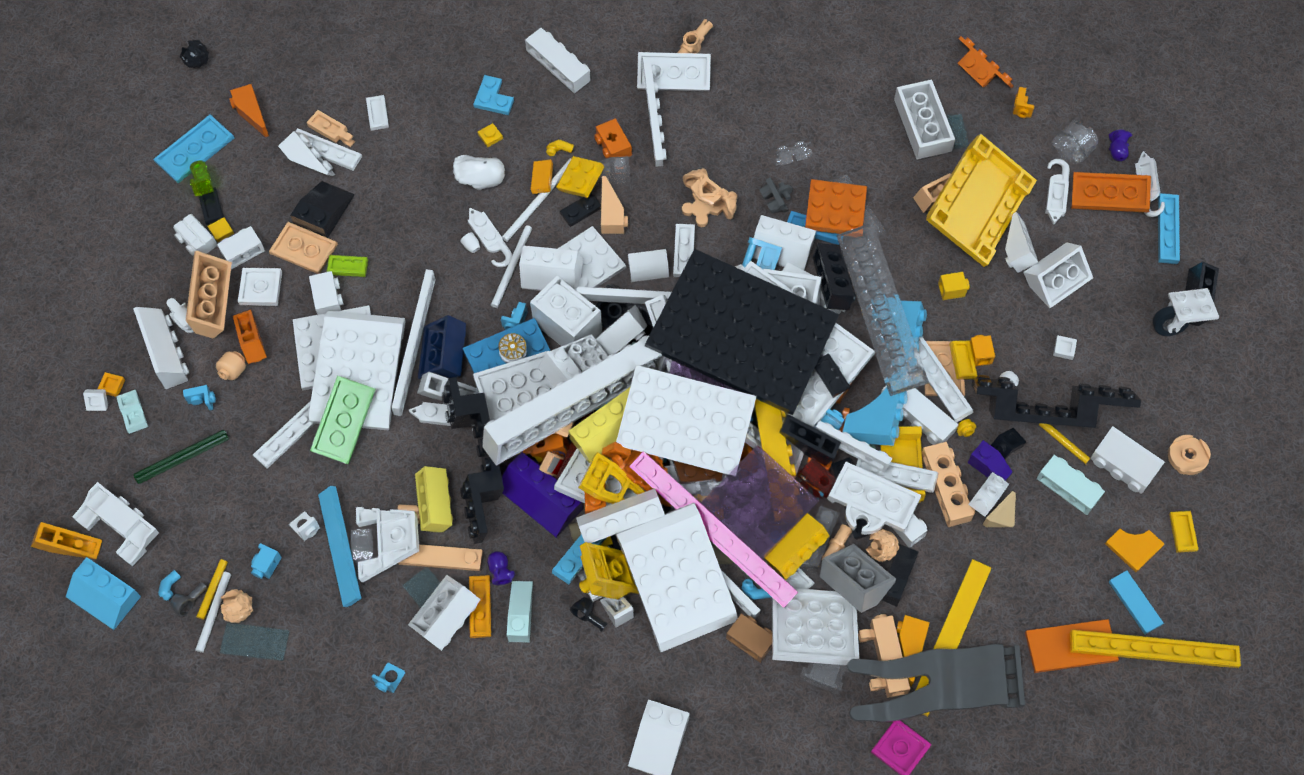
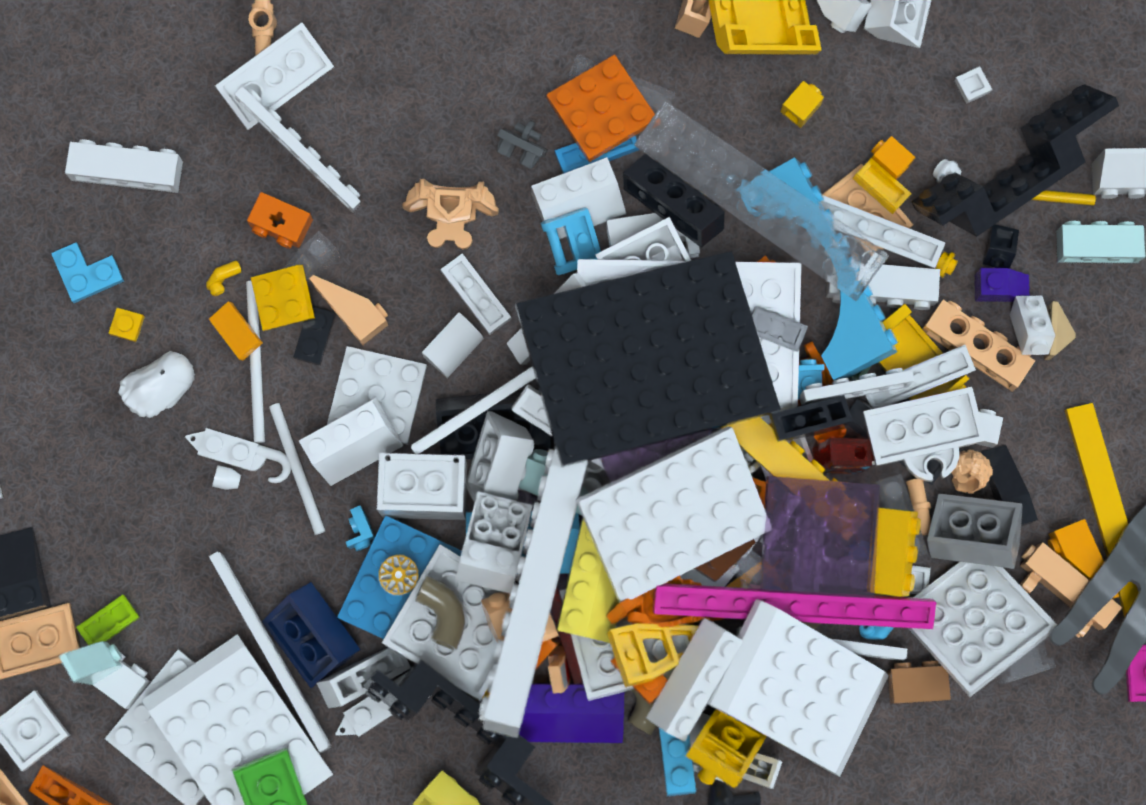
camera: 45 degrees left, 15 degrees up
(318, 267) = (92, 662): none -> light aqua slope
(521, 382) = (447, 610): none -> dark tan cylinder
(785, 154) = (500, 65): clear hinge -> none

